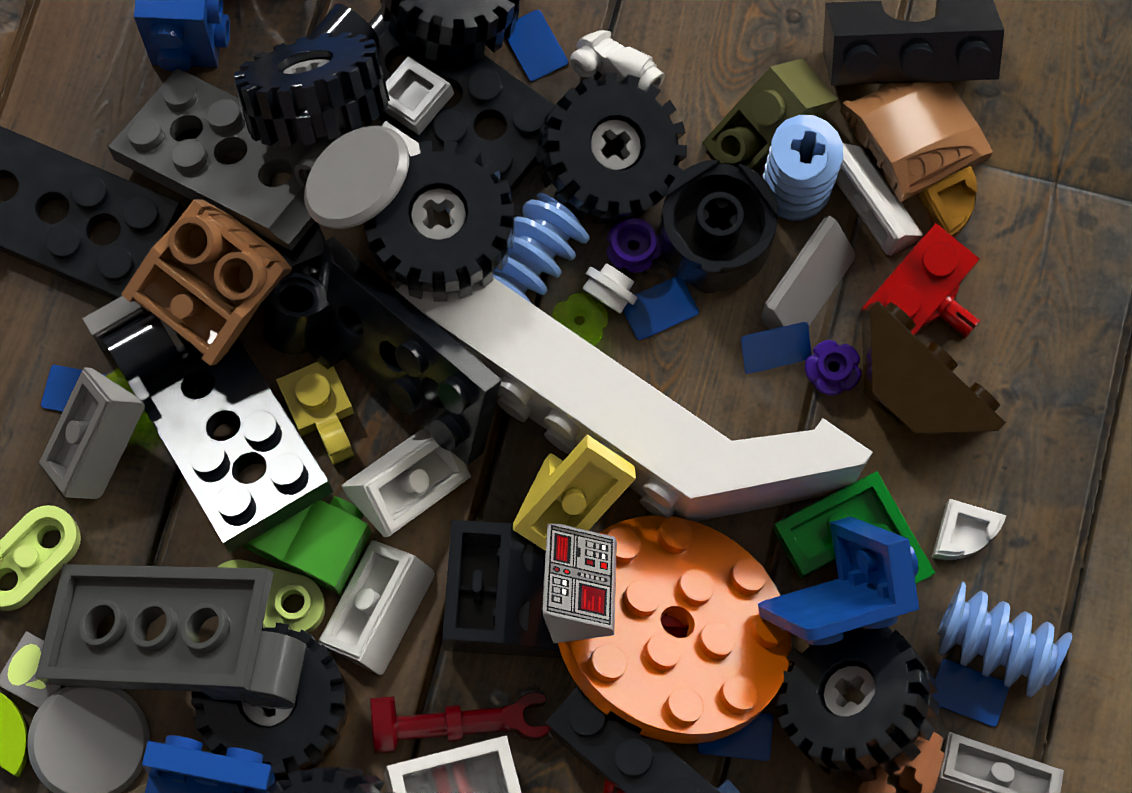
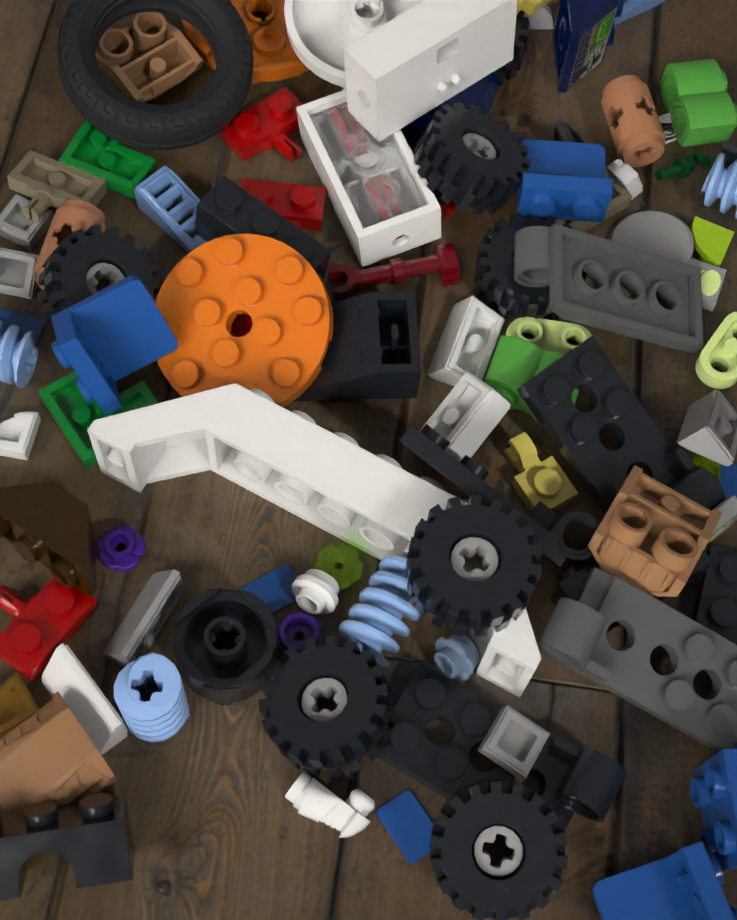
camera: 170 degrees right, 10 degrees down
(312, 89) = (603, 665): black bush -> none
(356, 177) = (551, 585): light grey piece -> none
(573, 490) = (331, 393): light yellow slope -> none
(579, 583) = (317, 314): slope -> none
(776, 347) = (170, 559): blue sticker -> none
(777, 95) = (180, 761): olive slope -> none

